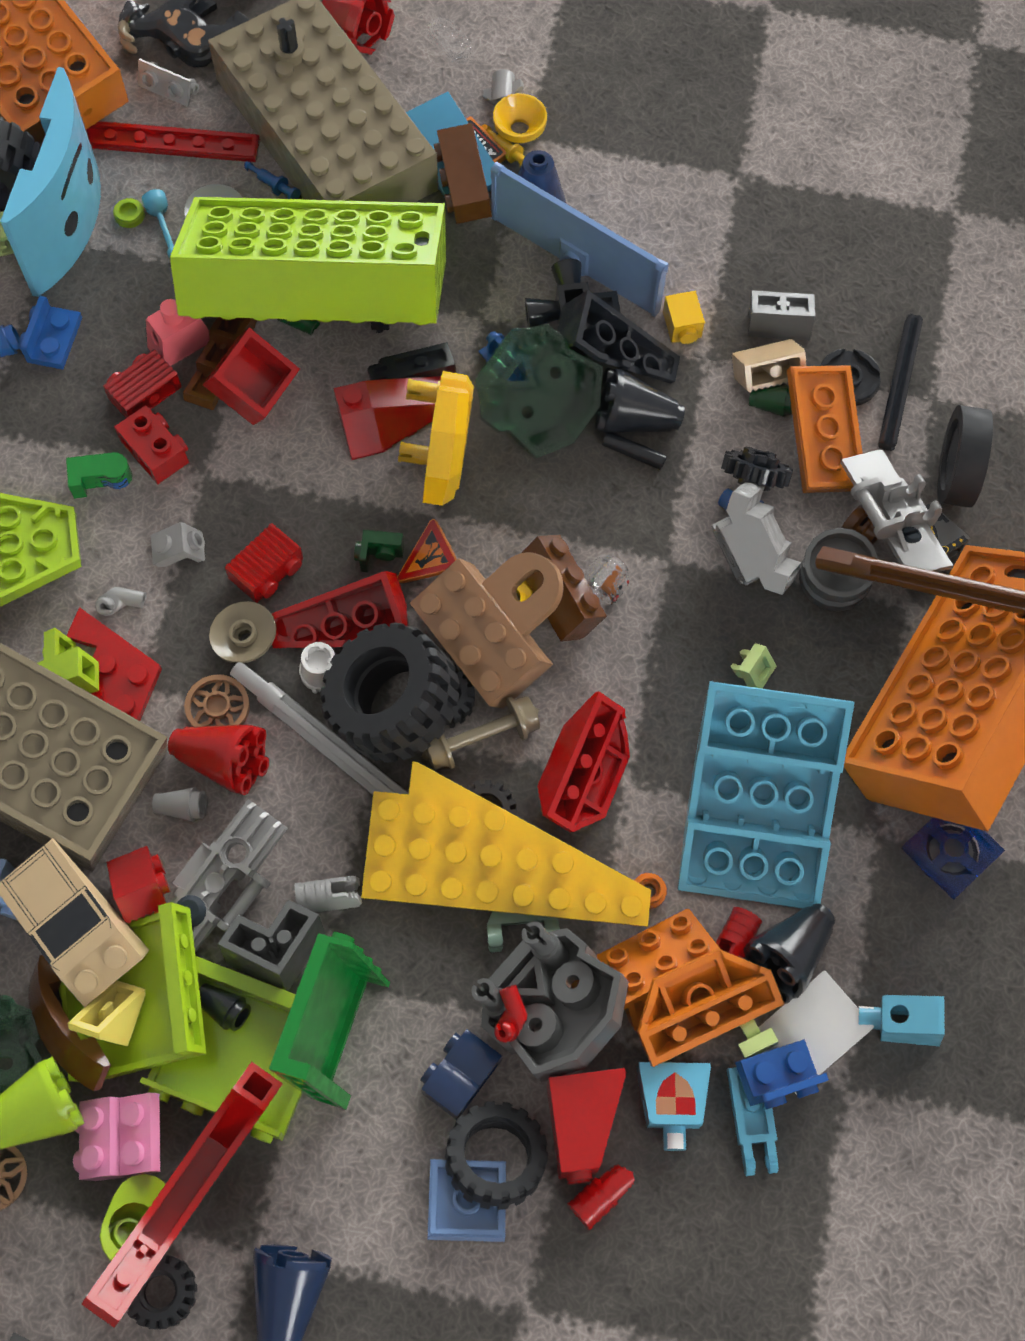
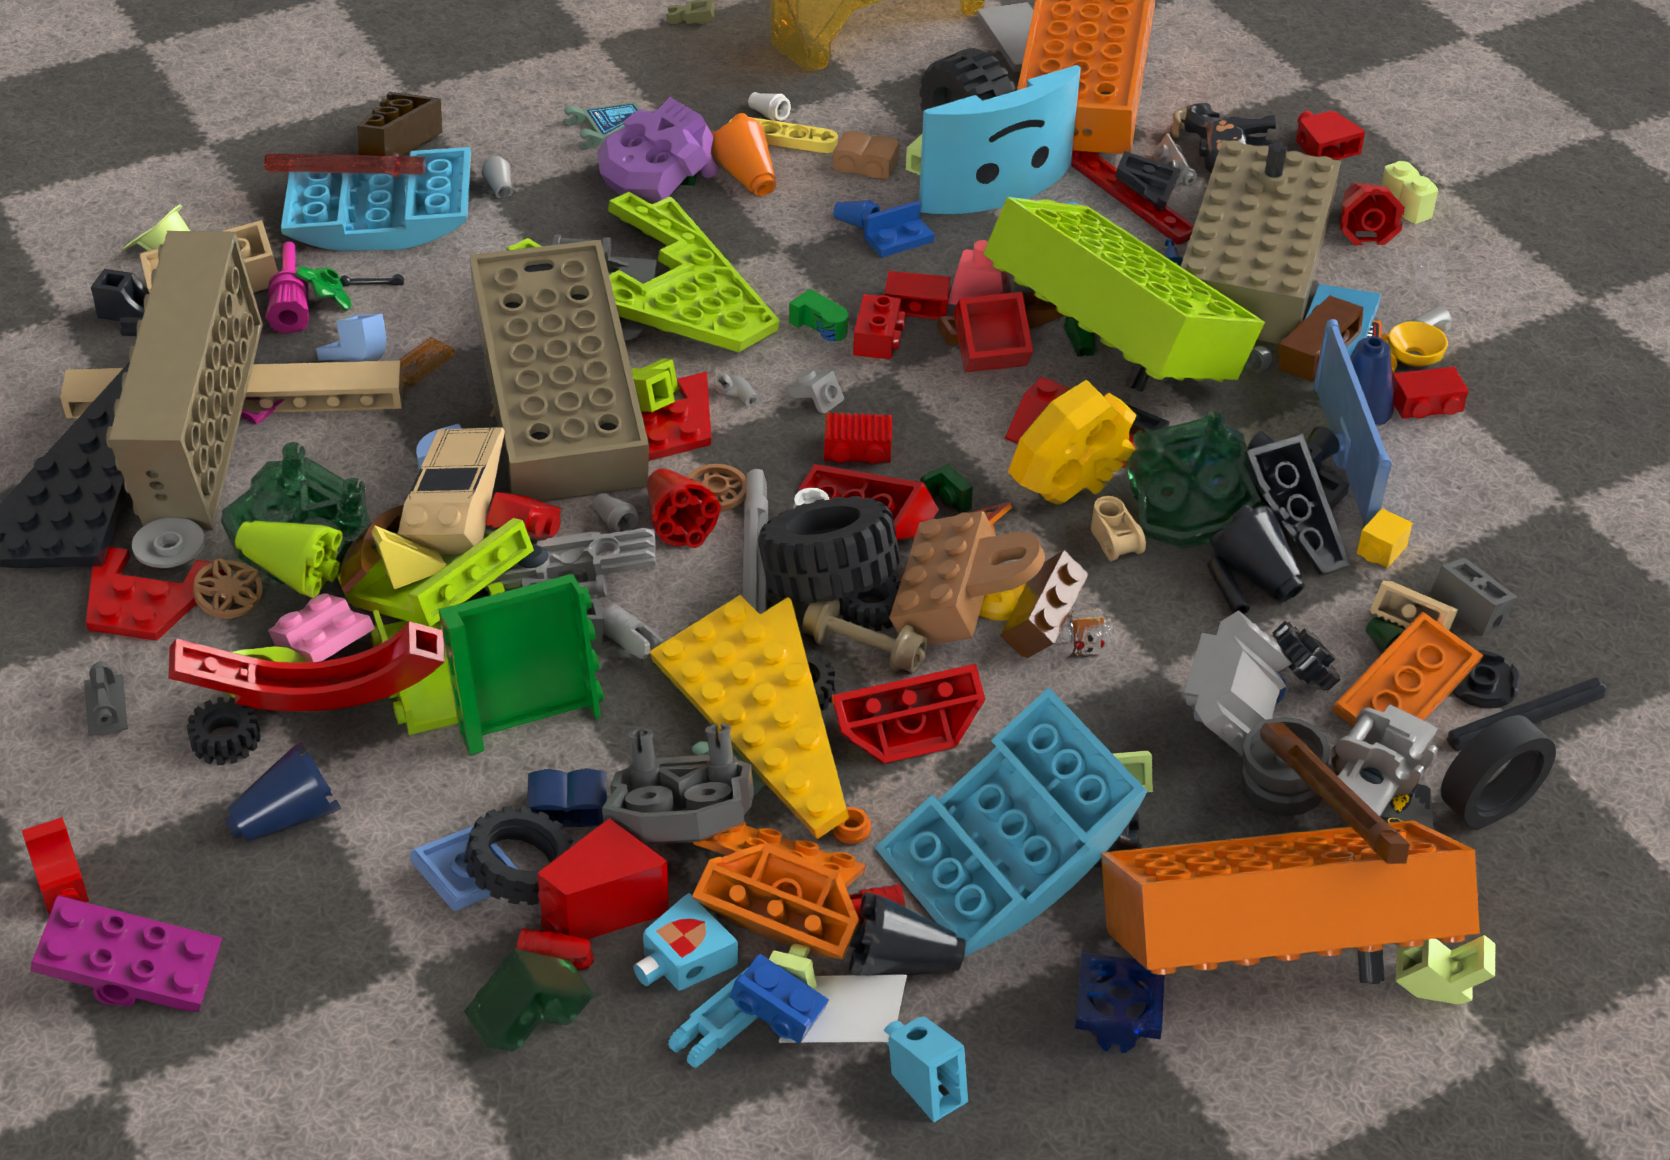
camera: 50 degrees right, 25 degrees down
(173, 117) = (1148, 178): none -> black wing
(237, 621) = (788, 459): dark tan dish -> none
(513, 1017) = (639, 774): red arm -> none
(524, 474) = (1116, 528): none -> tan piece
(574, 155) = (1429, 392): none -> red brick
(643, 1254) = (523, 994): none -> clear green brick

